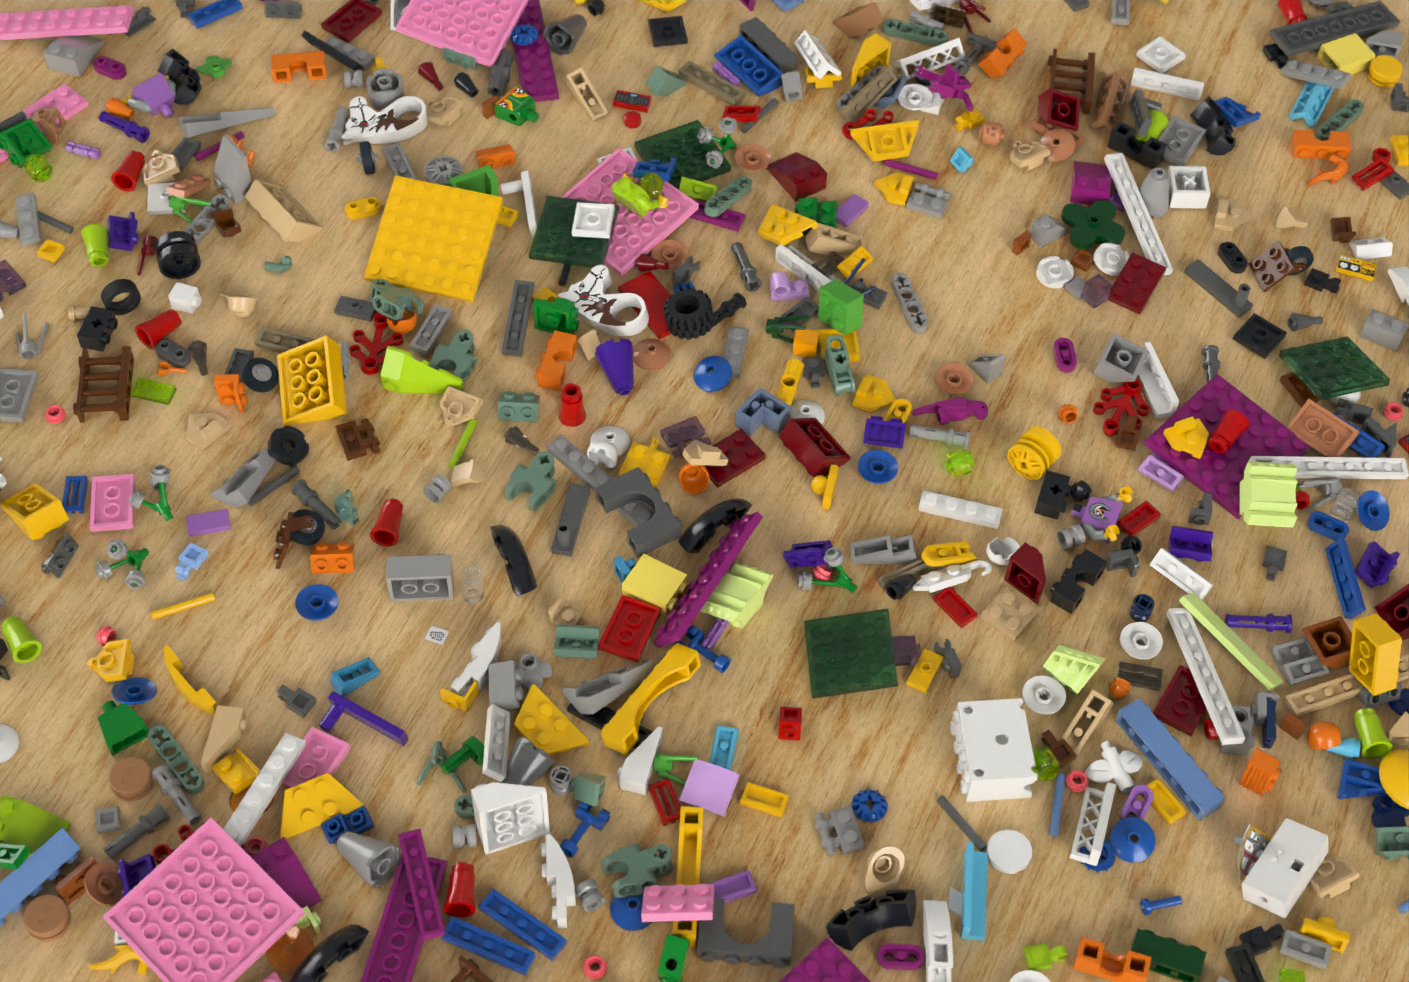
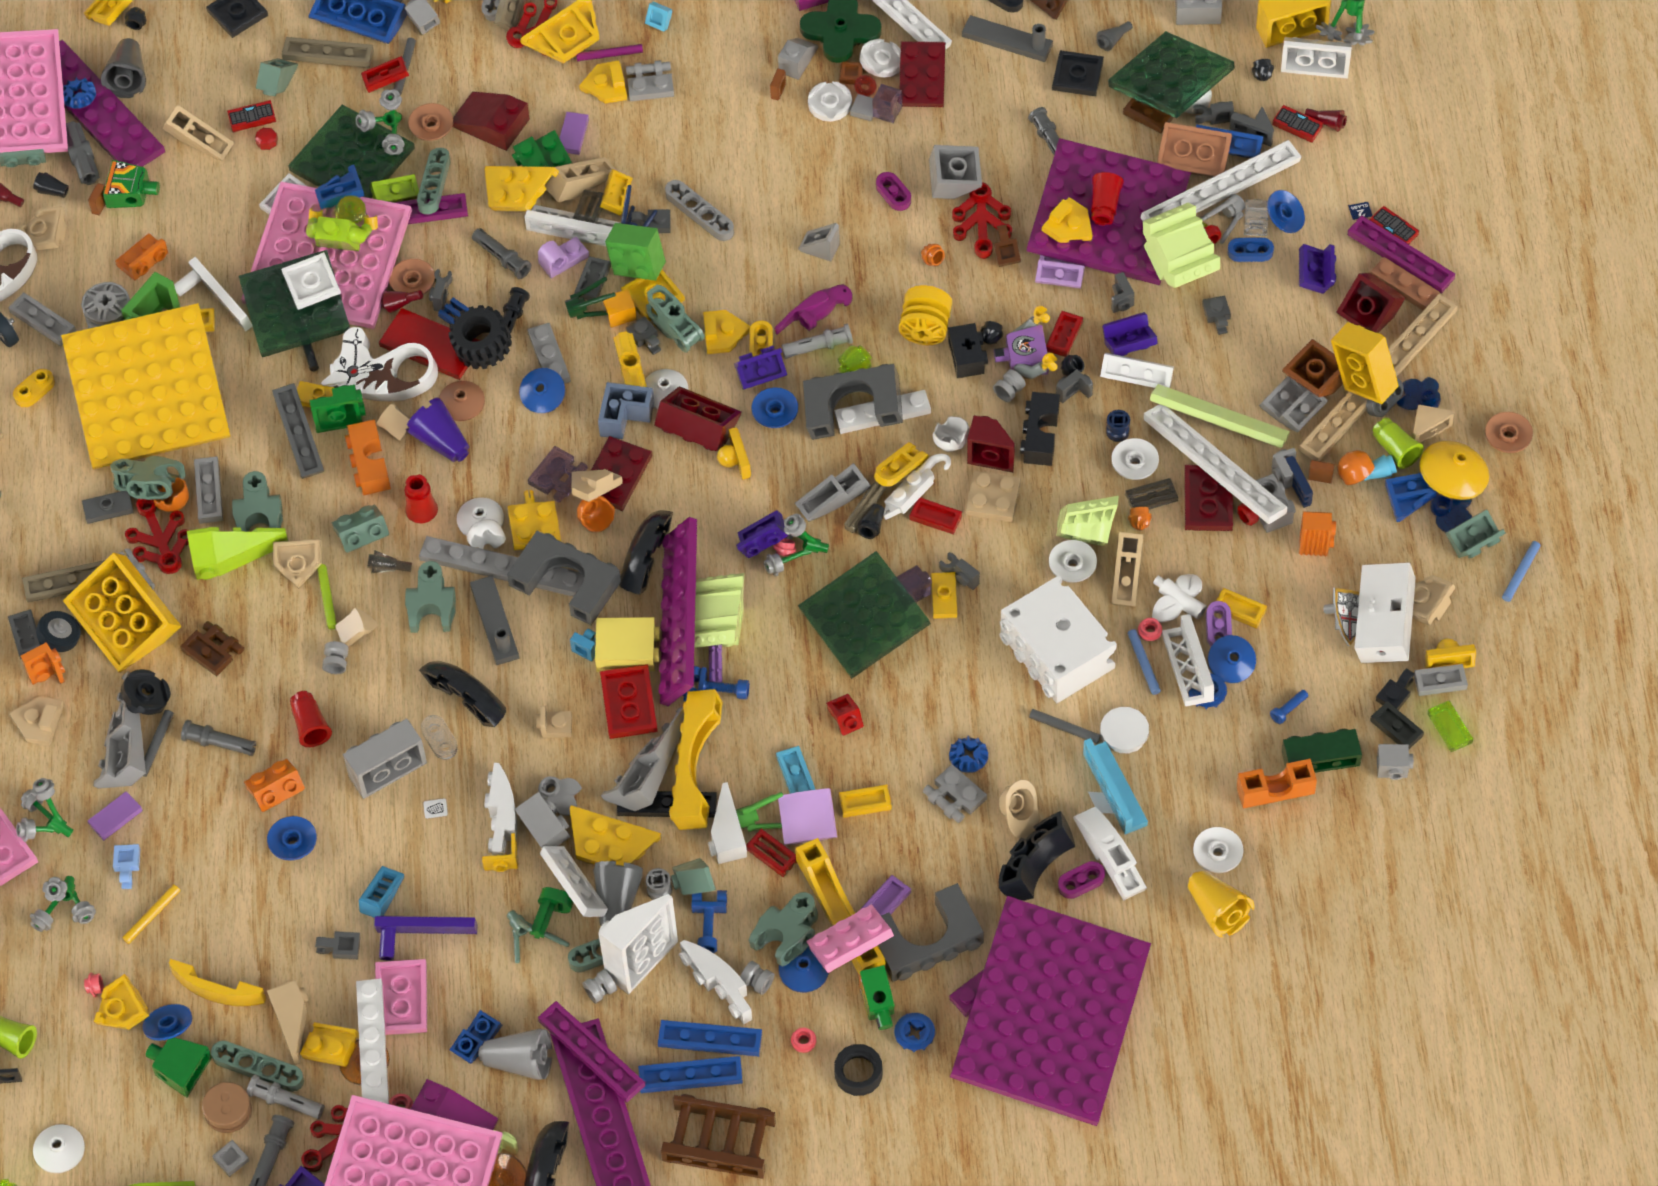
camera: 25 degrees left, 5 degrees up
(302, 527) = (222, 770): plate -> none
(314, 803) = (431, 1033): yellow wing -> none
(344, 508) = (253, 729): clear light blue bracket -> none
(460, 893) = (631, 1038): red plant -> none
(576, 641) = (584, 742): sand green bracket -> none
(726, 74) = (335, 33): medium lavender axle -> none
(920, 474) = (823, 394): none -> dark grey arch
(956, 373) = (796, 266): nougat dish -> none
(1041, 958) = (1209, 813): lime plate -> none
(1045, 764) = (1114, 626): clear neon green head -> none
(1060, 749) = (1117, 610): reddish brown plate -> none
(1087, 268) = (867, 80): none -> clear red plate
(1157, 385) = (1006, 180): white fence -> none
(1170, 759) = (1224, 563): medium blue brick -> none
(1270, 622) = (1245, 376): dark purple pin -> none
(1345, 579) = (1294, 297): blue plate -> none
(1393, 411) = (1252, 88): coral plate -> none

